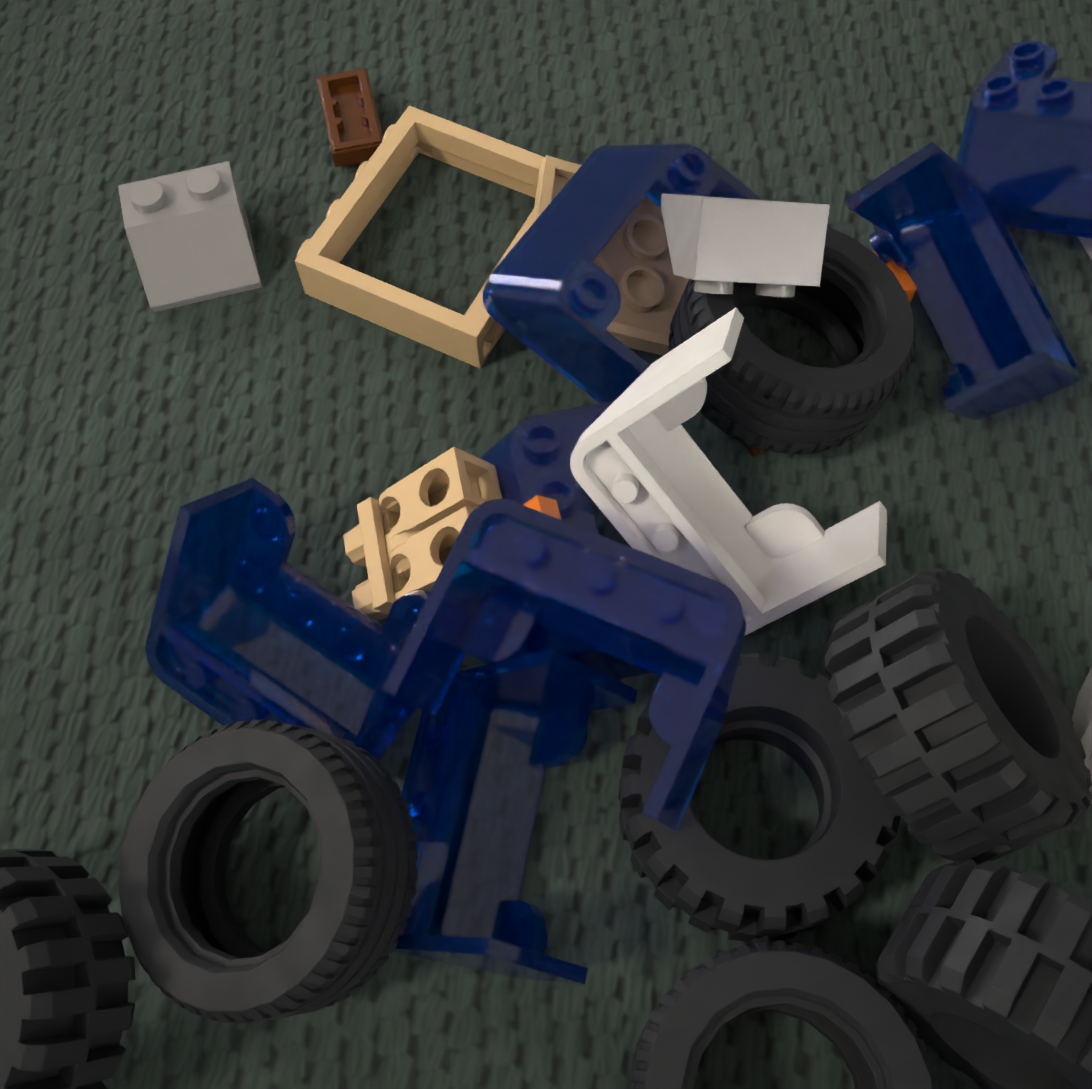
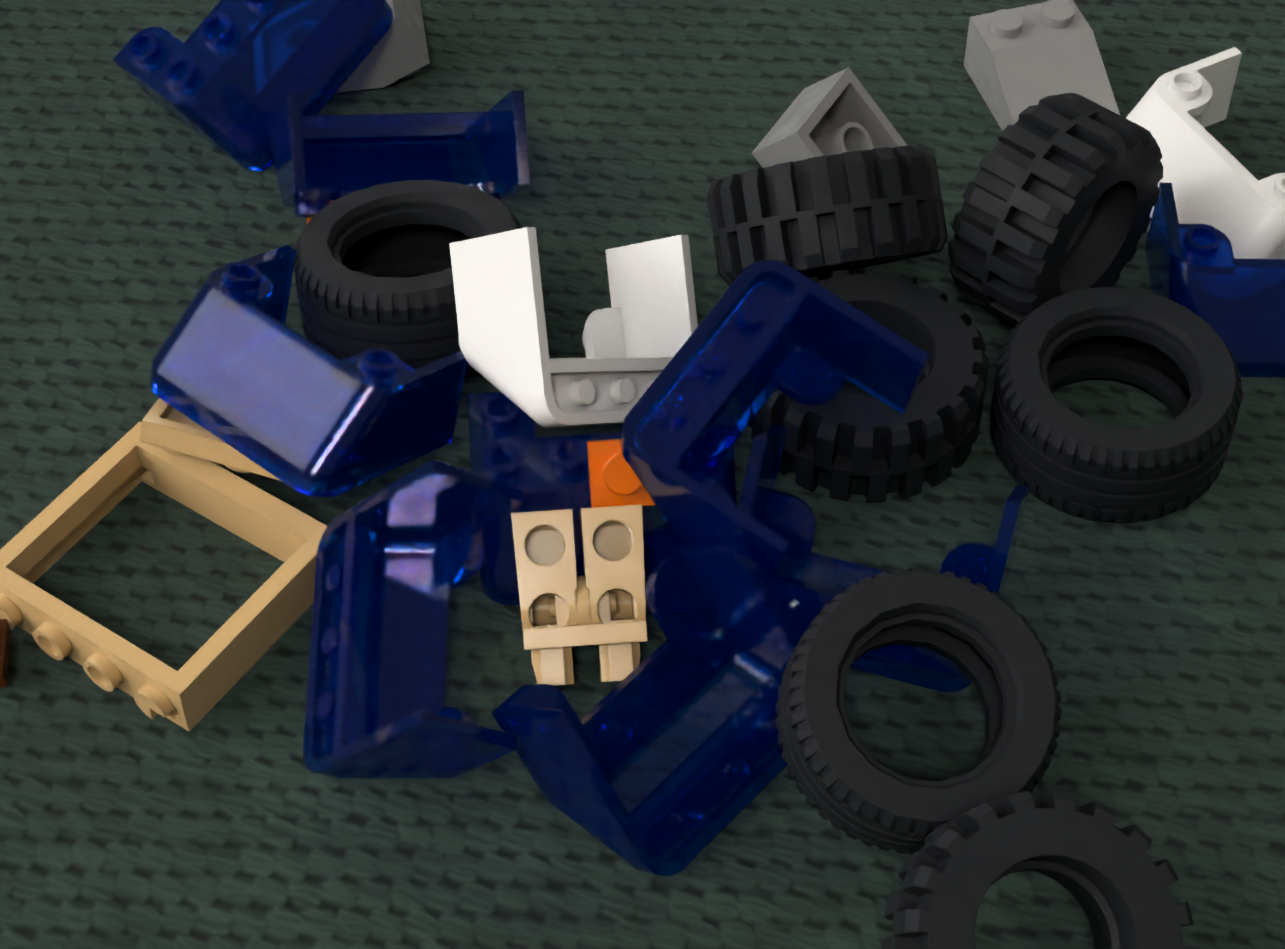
camera: 85 degrees left, 15 degrees down
(189, 236) = (83, 828): light grey slope -> none
(344, 409) = (385, 625): none -> clear blue windscreen
(745, 242) = (348, 245): light grey slope -> none

